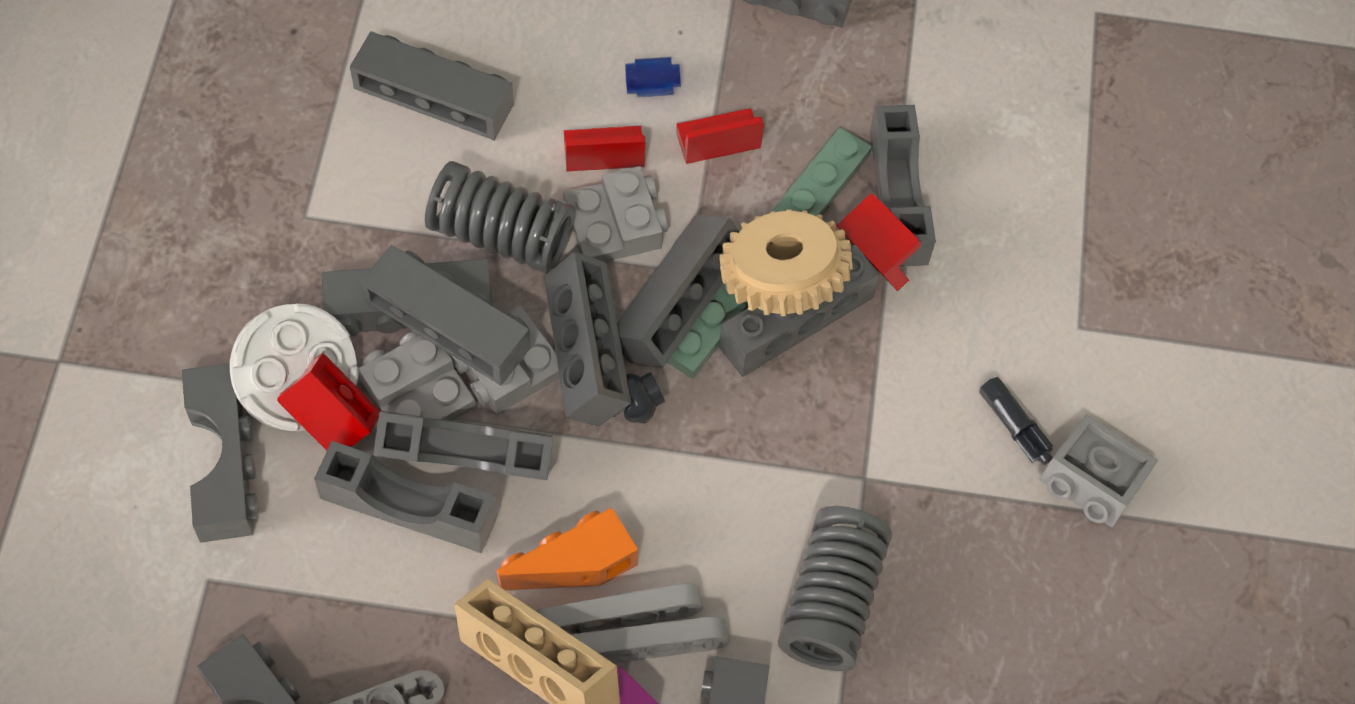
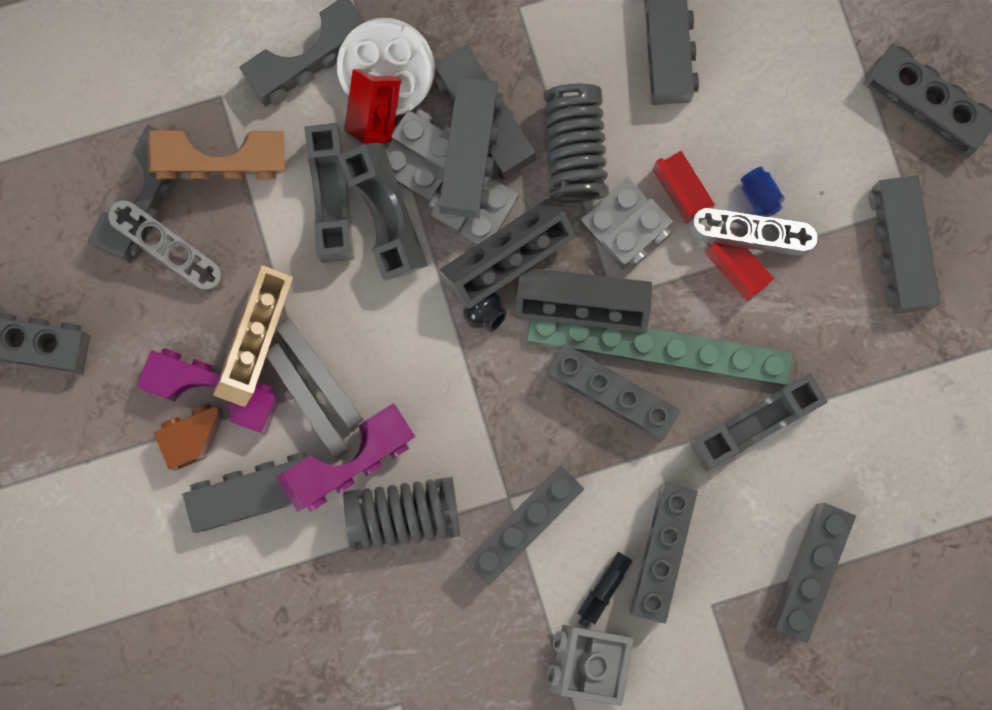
camera: 70 degrees right, 20 degrees up
(258, 639) = (172, 154): none -> medium nougat arch
(578, 558) = (352, 335): orange slope -> none
(685, 100) = (753, 237): none -> beam
(751, 658) = (312, 479): none -> magenta arch
(786, 262) = (616, 385): tan gear -> none
(880, 238) = (694, 426): red panel -> none
(908, 467) = (524, 525): none -> dark grey brick
(1003, 340) = (663, 552): none -> dark grey brick
(1087, 210) = (812, 572): none -> dark grey brick

